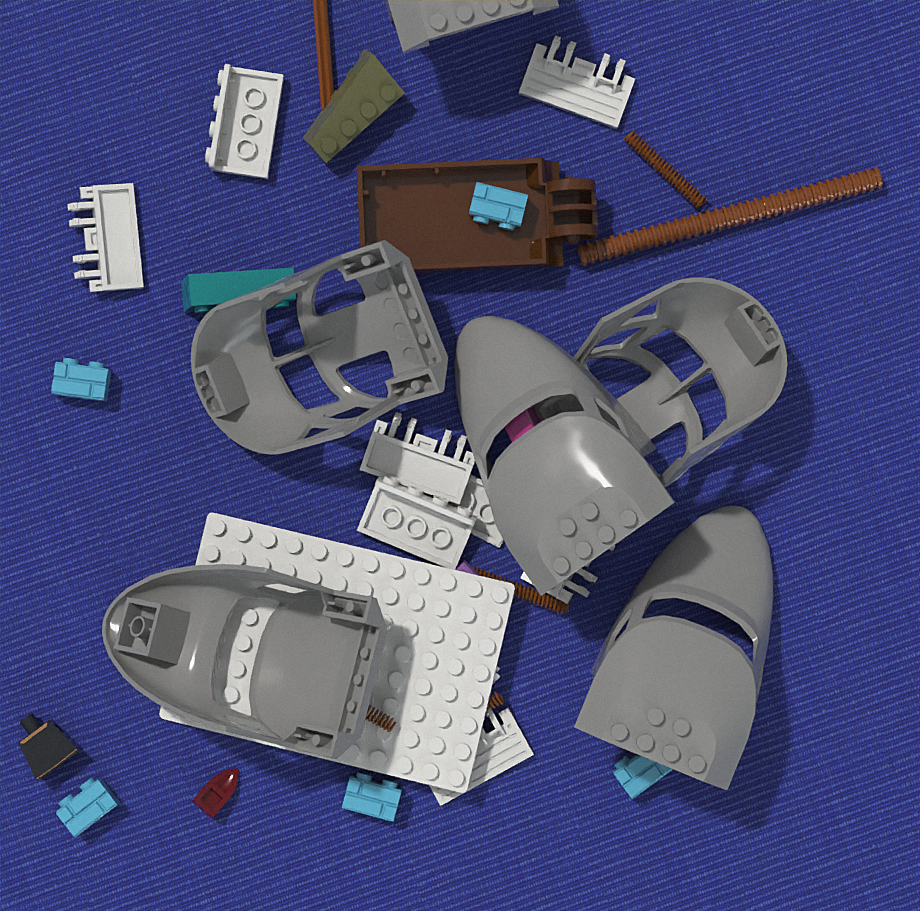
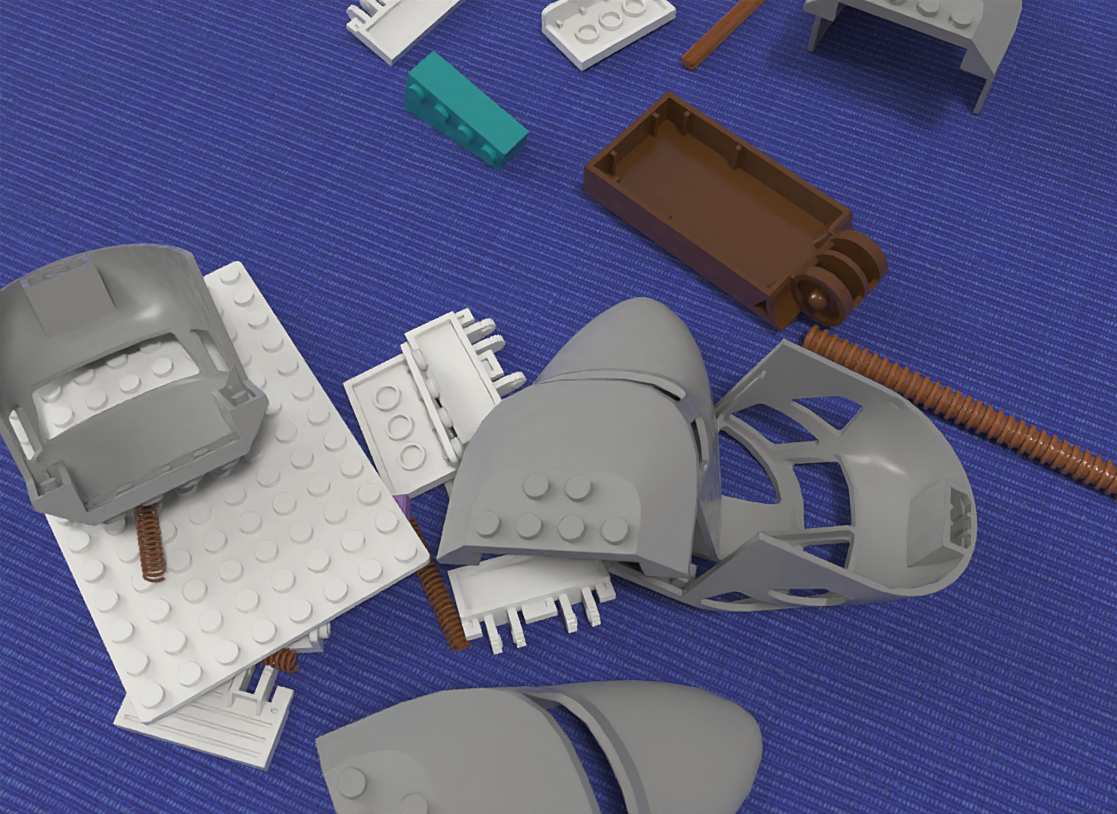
camera: 40 degrees right, 25 degrees down
(81, 381) = (262, 79): medium azure brick -> none
(242, 378) = (407, 137): light grey piece -> none
(352, 107) = (712, 65): olive wedge -> none
(372, 797) = (61, 643): medium azure brick -> none
(497, 206) = (768, 223): medium azure brick -> none
(576, 87) = (940, 218): white hinge -> none
(681, 185) = (967, 376): dark orange piece -> none

